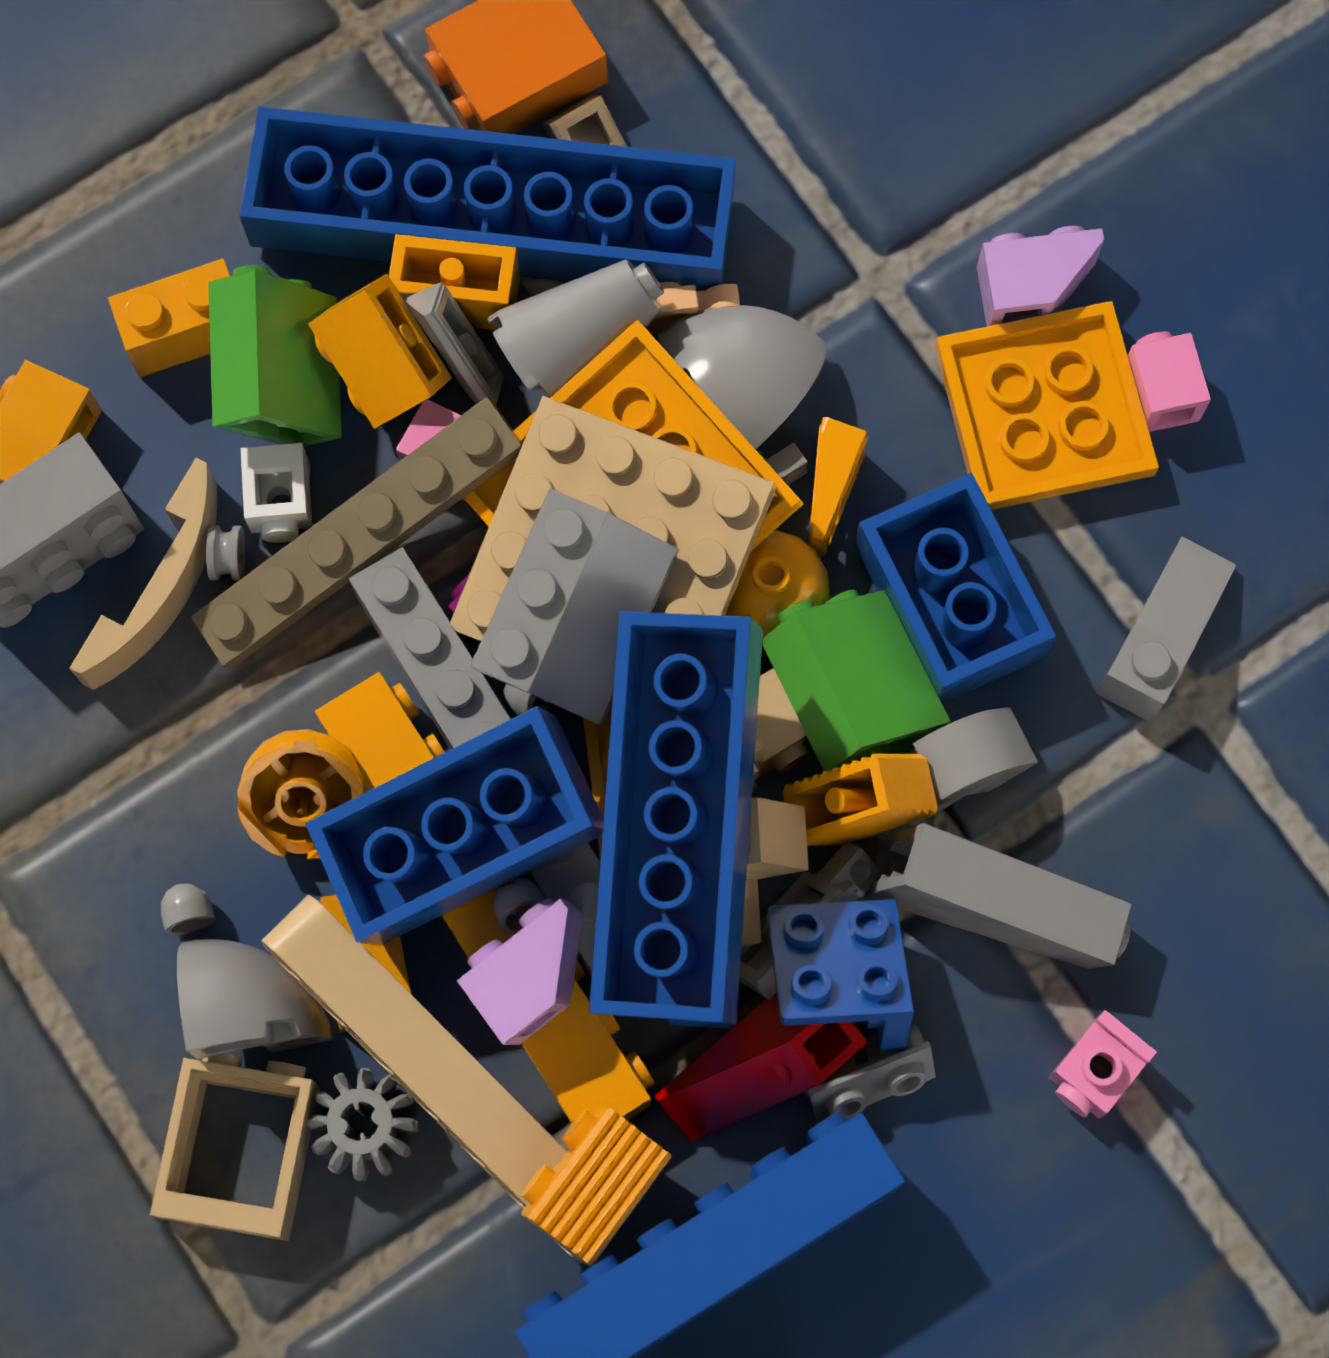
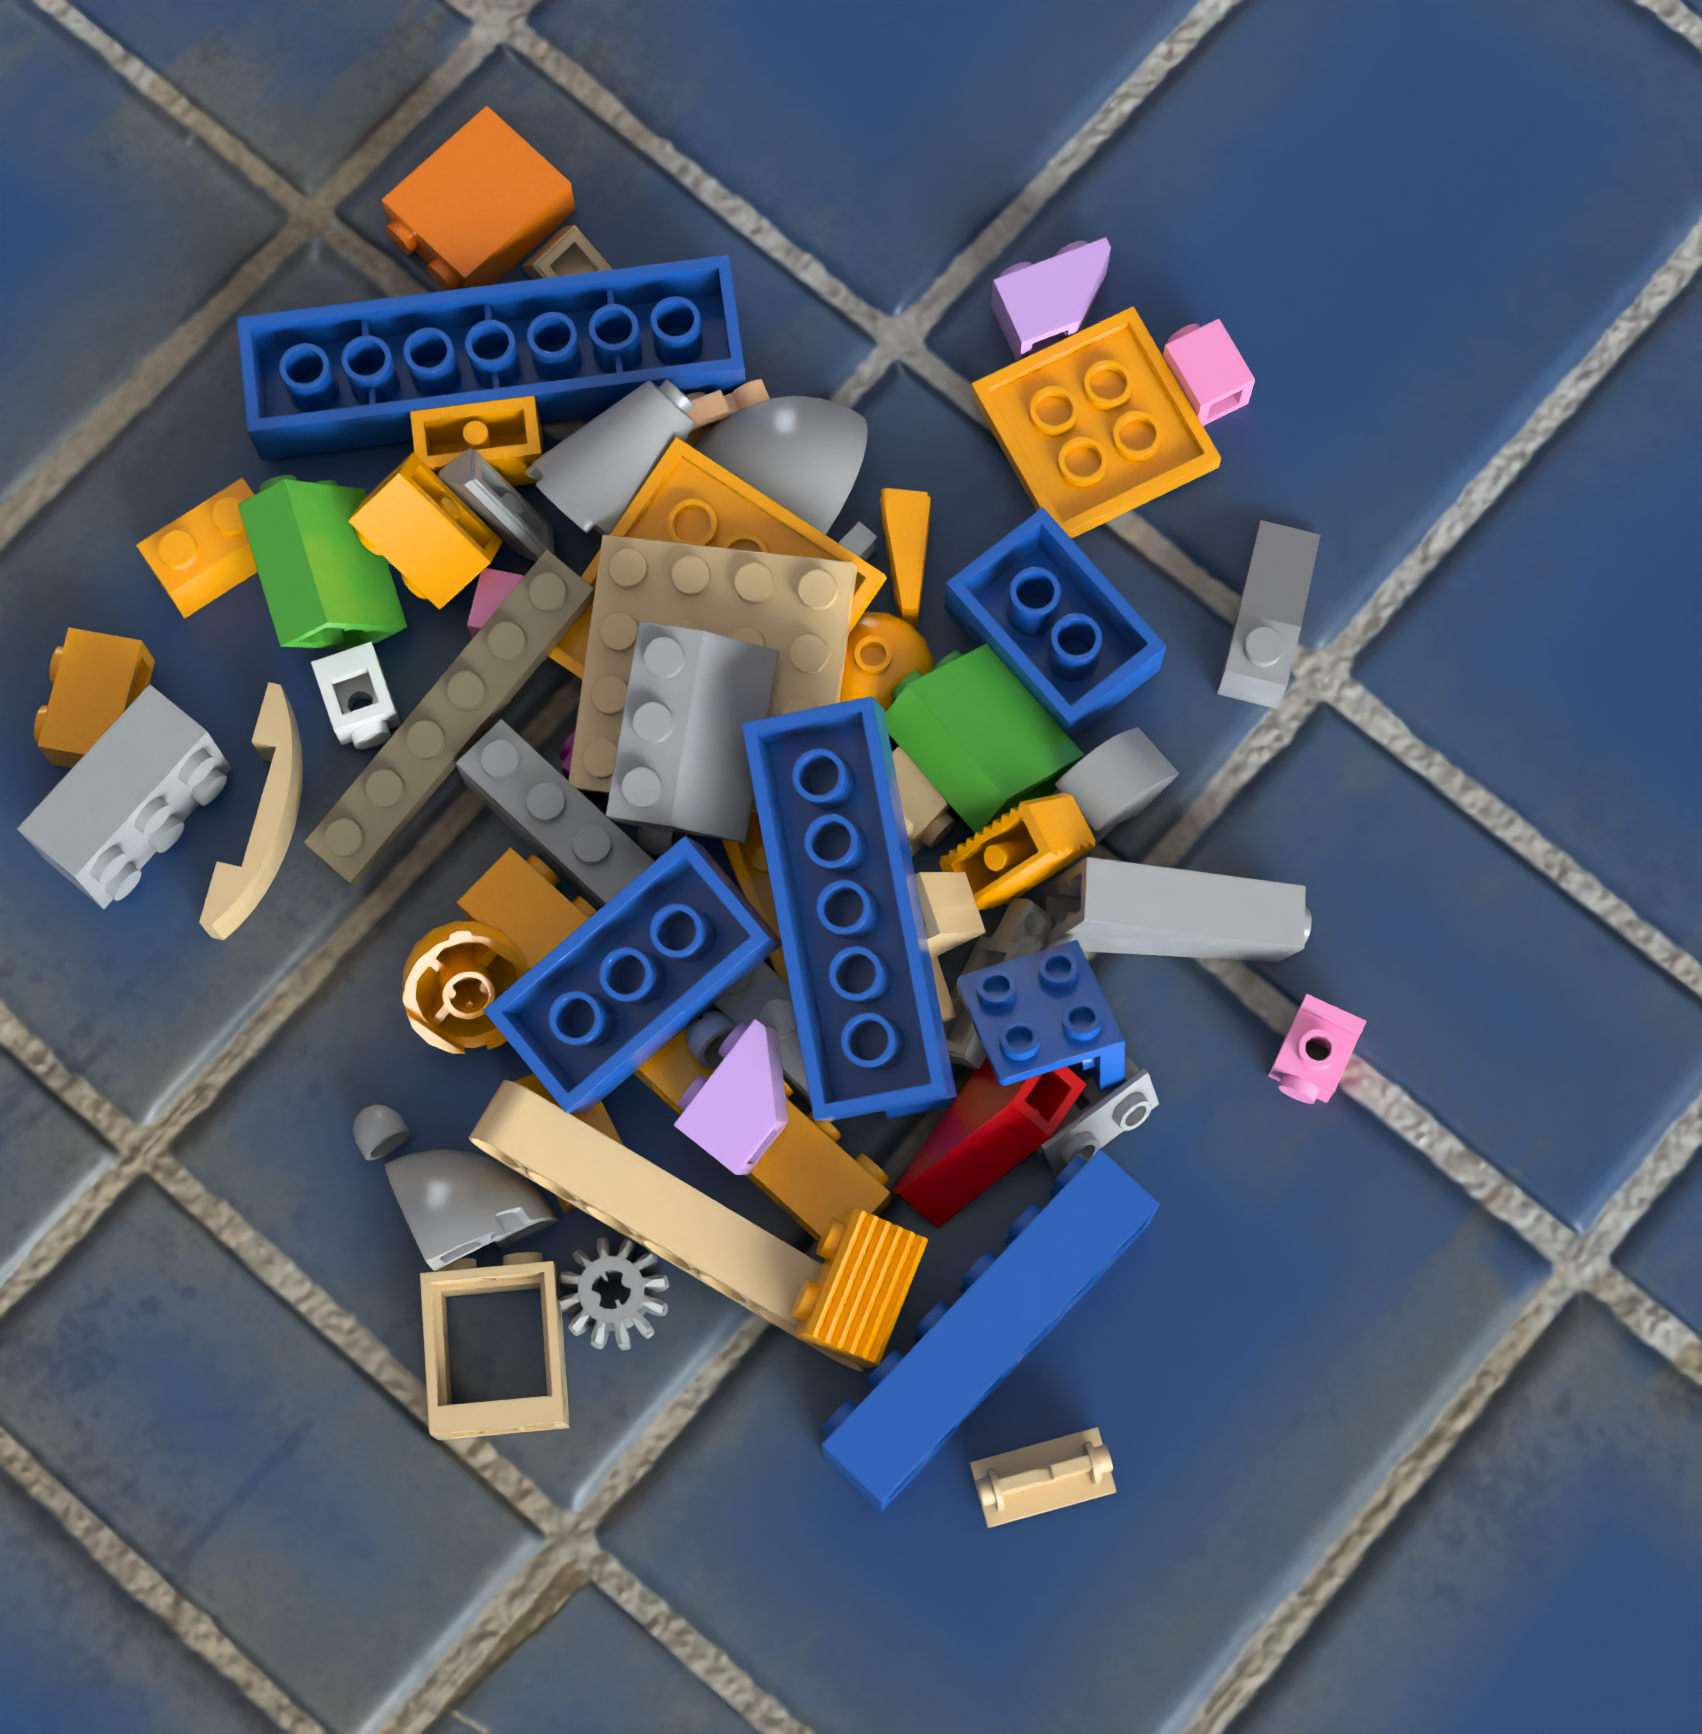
camera: 15 degrees left, 0 degrees up
(225, 552) = (322, 770): light grey bush -> none

